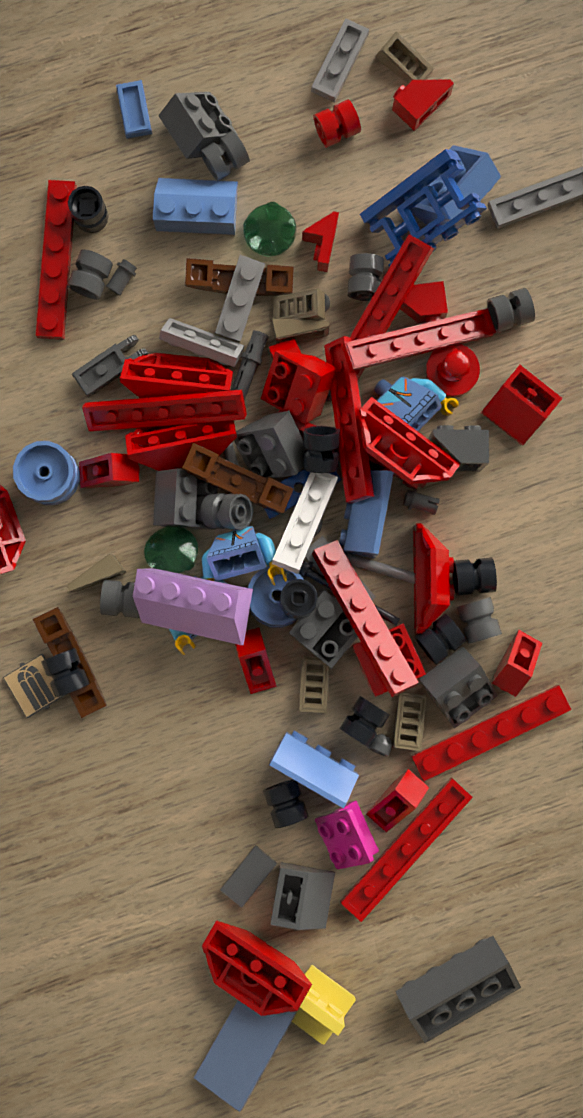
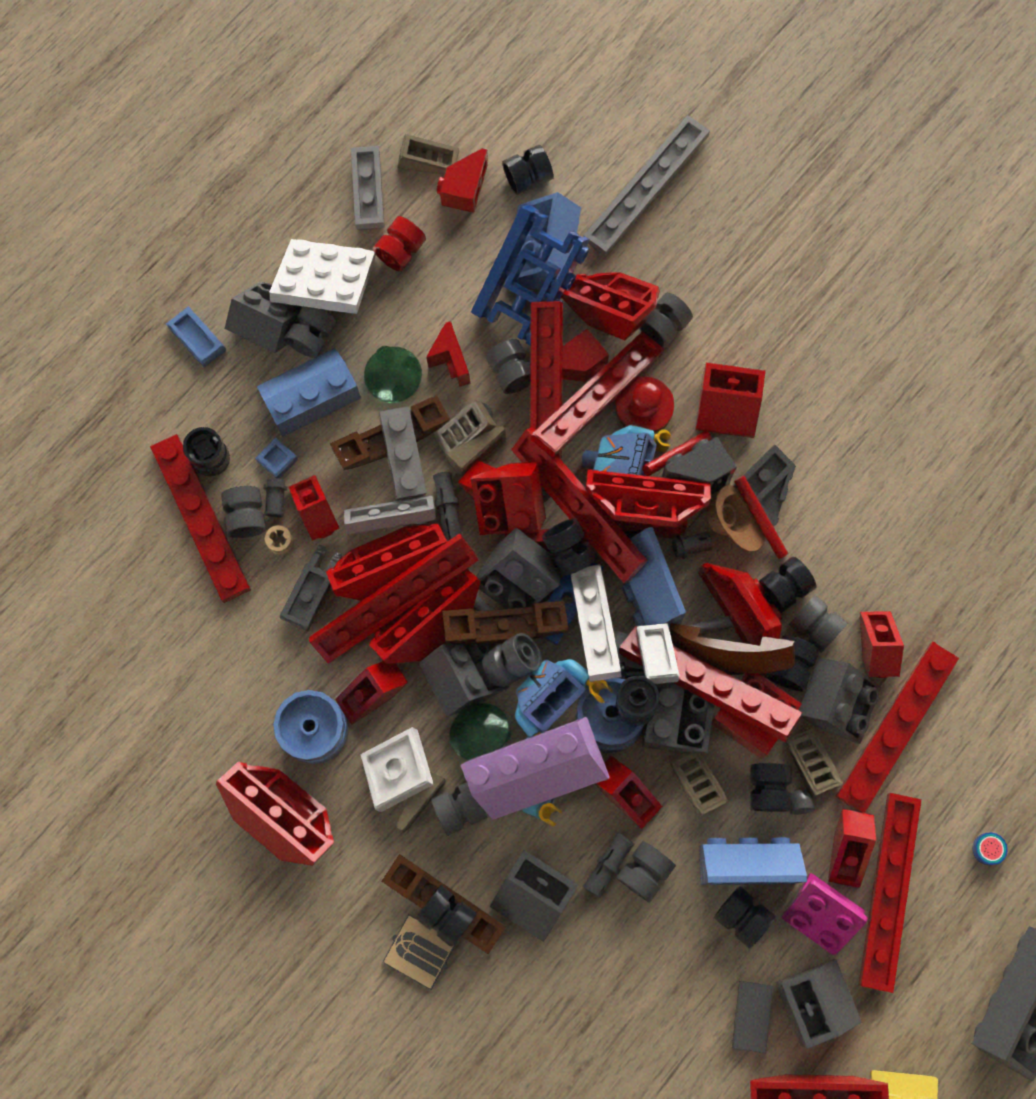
camera: 25 degrees left, 10 degrees down
(92, 543) = (396, 769): none -> white tile
(98, 313) = (276, 530): none -> tan bush
(140, 695) = (533, 895): none -> dark grey slope
(141, 246) = (276, 458): none -> medium blue tile
(146, 302) = (313, 508): none -> red slope
(209, 706) = (608, 865): none -> dark grey pin
(233, 727) = (646, 871): none -> dark grey wheel
(259, 116) = (322, 276): none -> white plate
(337, 572) = (657, 653): none -> white tile
(421, 625) = (734, 656): none -> reddish brown slope
(458, 423) = (660, 462): none -> red bar
(467, 502) = (732, 517): none -> medium nougat piece
(477, 119) = (529, 169): none -> black wheel
(477, 270) = (612, 302): none -> red wedge
(487, 511) = (761, 517): none -> red bar
(501, 862) = (990, 848): none -> tile
(508, 488) = (770, 481): none -> dark grey wing

